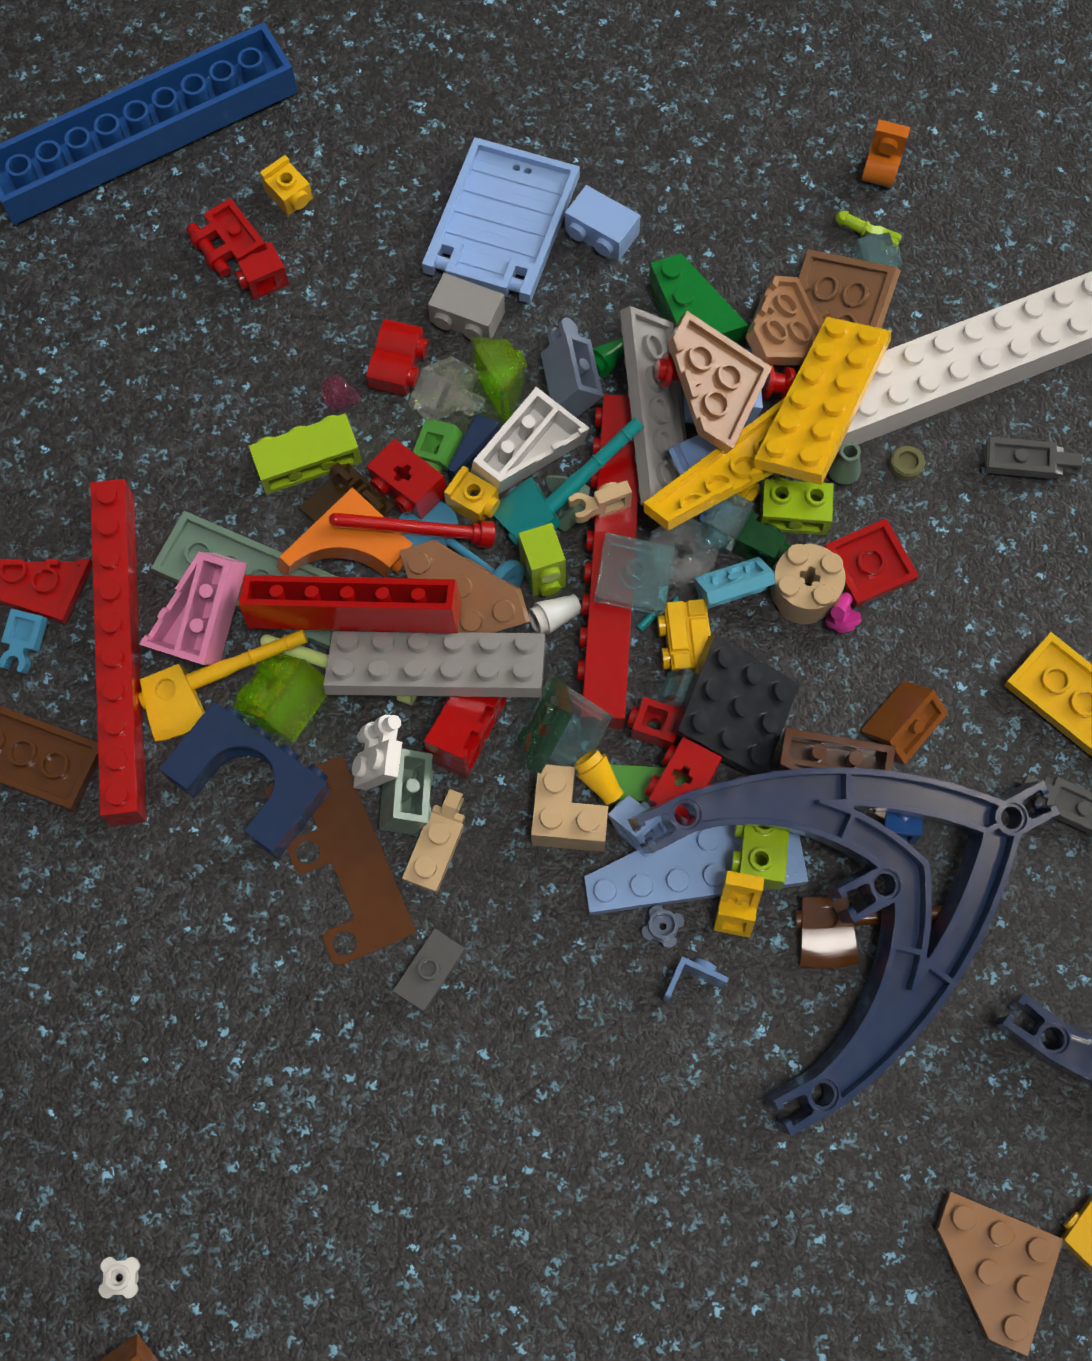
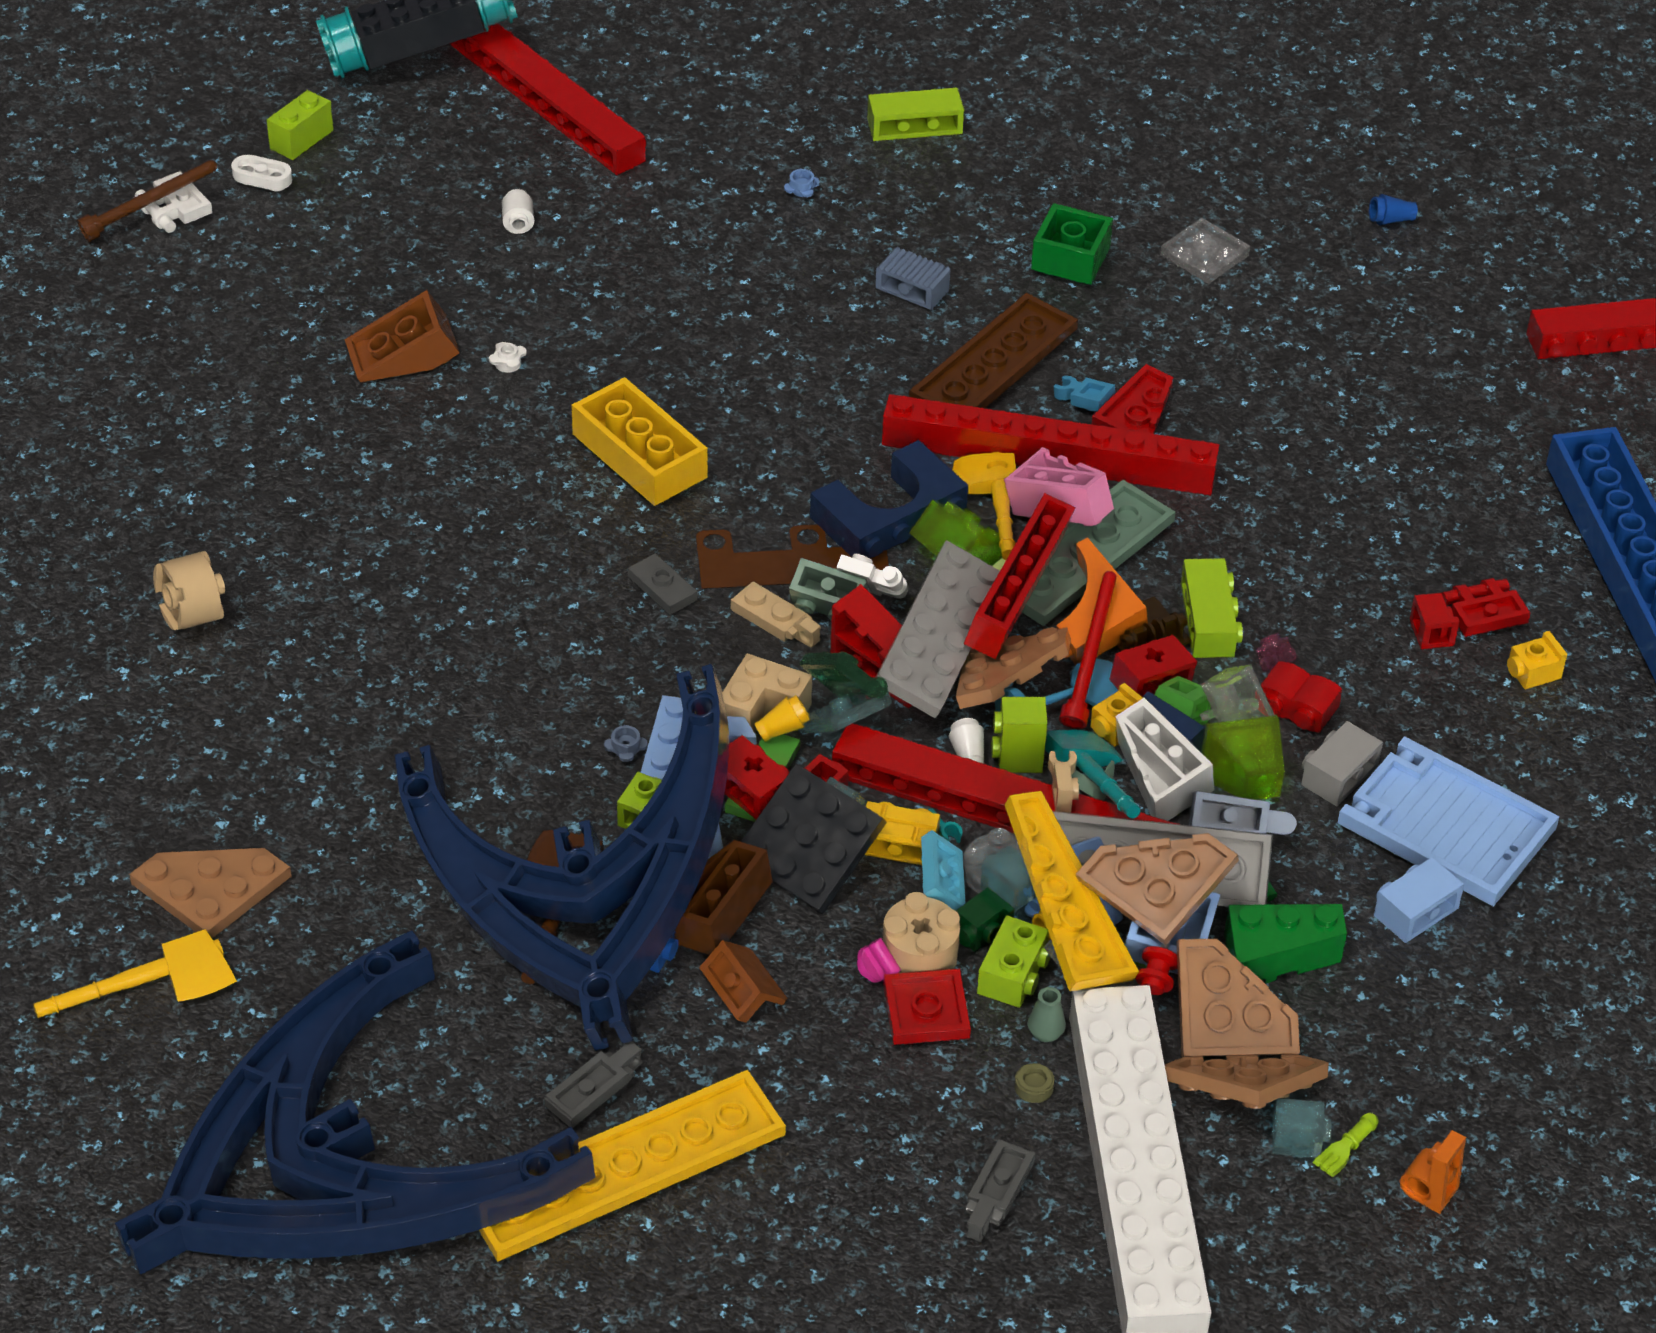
camera: 105 degrees right, 25 degrees down
(236, 1063) = (639, 441): none -> yellow brick
(634, 574) = (976, 791): clear light blue plate -> none
(699, 968) = (573, 748): medium blue bracket -> none
(738, 904) = (615, 782): yellow slope -> none
(822, 400) = (1115, 978): yellow plate -> none

